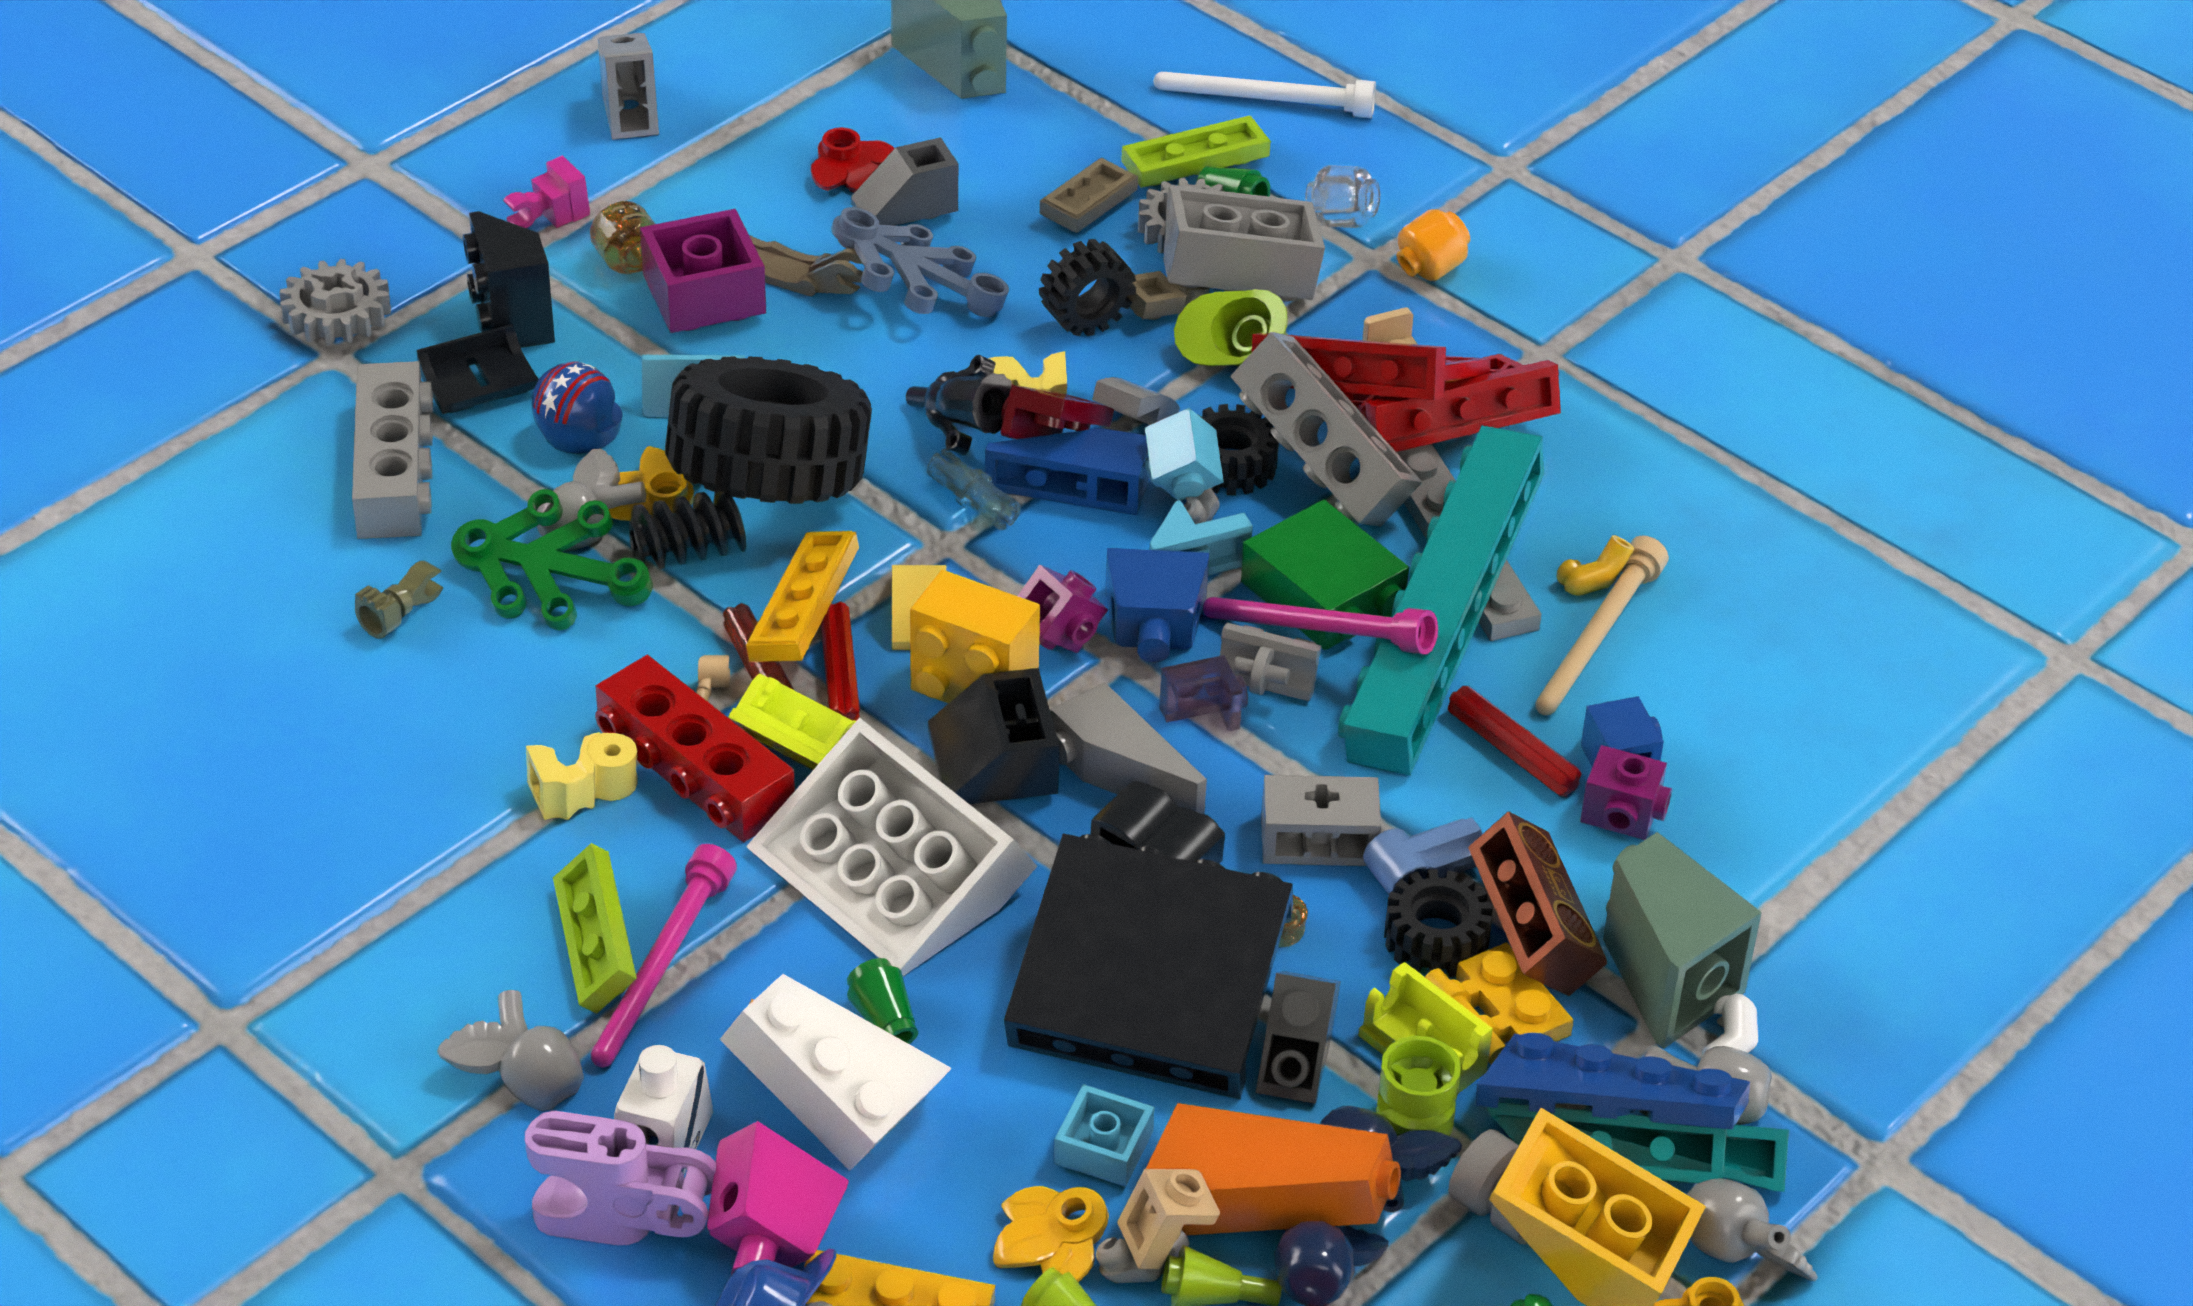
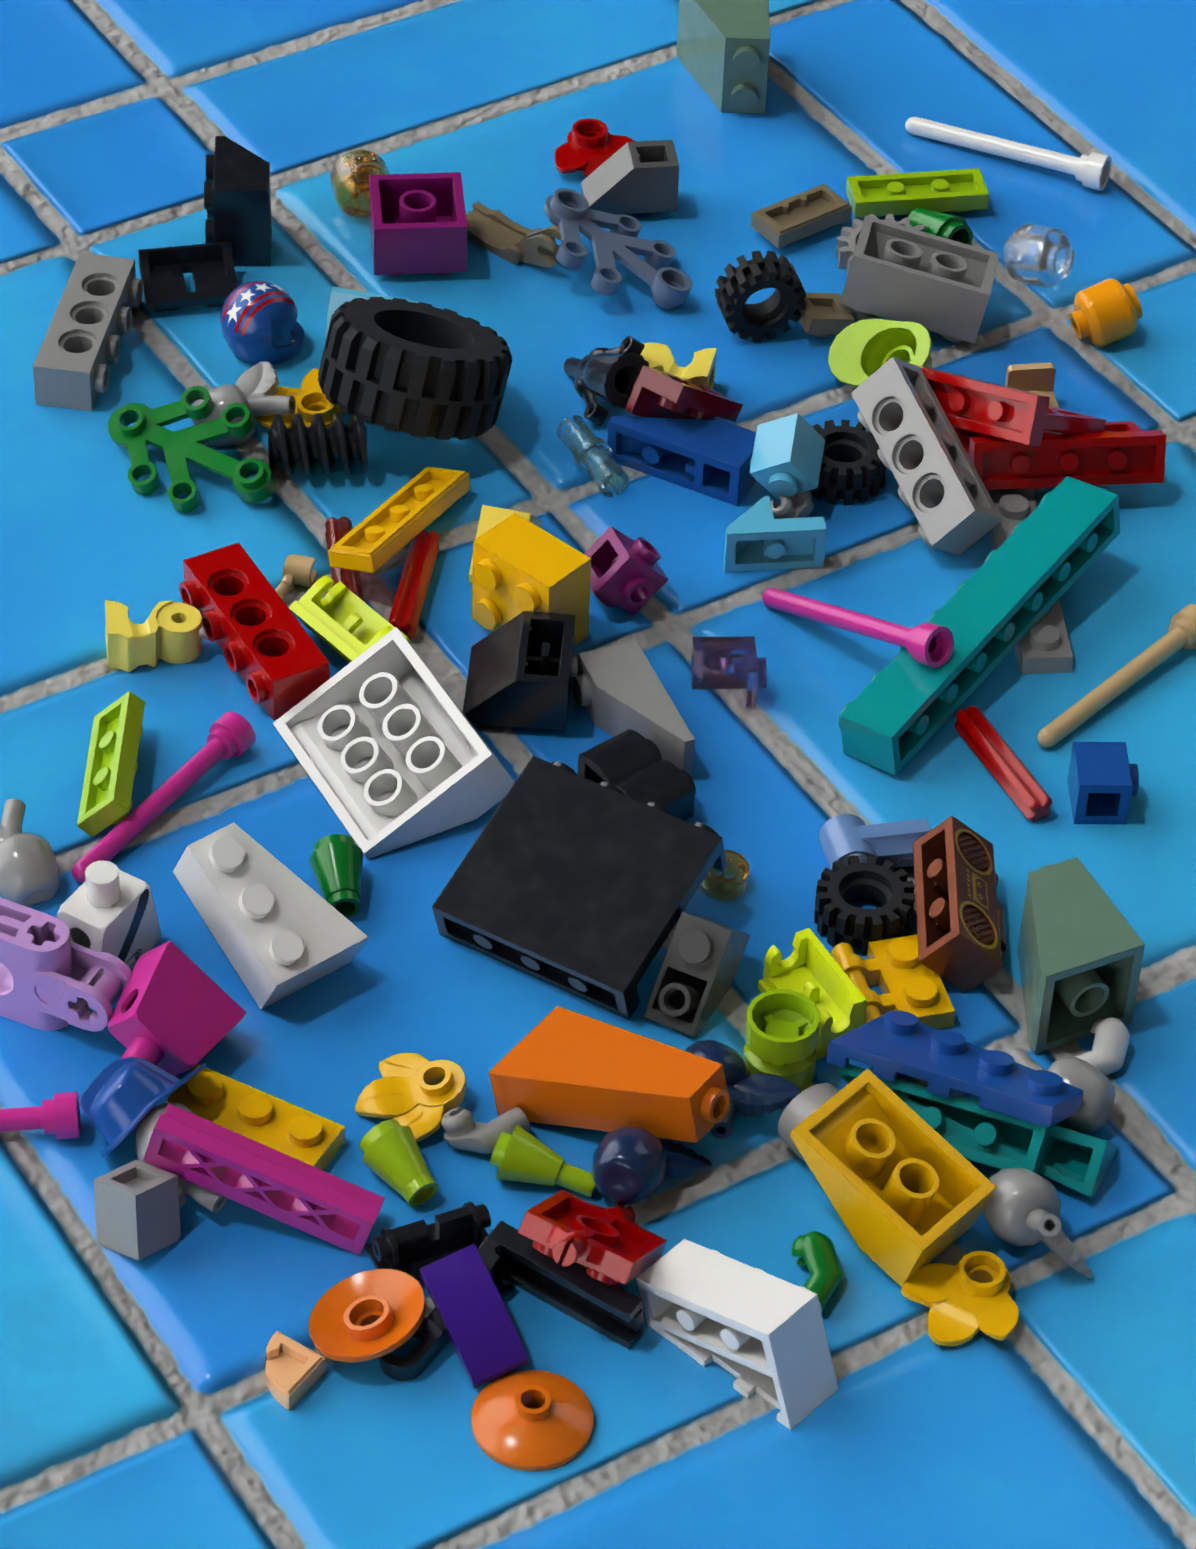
camera: 15 degrees right, 0 degrees up
(335, 301) = (85, 198): light grey gear -> none
(383, 611) = (30, 469): olive piece -> none
(556, 194) = (315, 136): dark pink piece -> none
(628, 75) = (413, 42): light grey torso -> none
(1104, 1135) = (487, 1021): medium azure piece -> none
(1134, 400) = (761, 399): light grey slope -> none
(1155, 599) = (720, 579): blue torso -> none
(1159, 1210) = (502, 1087): tan bracket -> none
(1271, 661) = (801, 652): light grey hips -> none
(1318, 819) = (788, 794): light grey brick -> none
(1323, 564) = (881, 575): green brick -> none
(1596, 575) = (1141, 632): yellow arm -> none
(1625, 793) = (1081, 824): magenta brick -> none

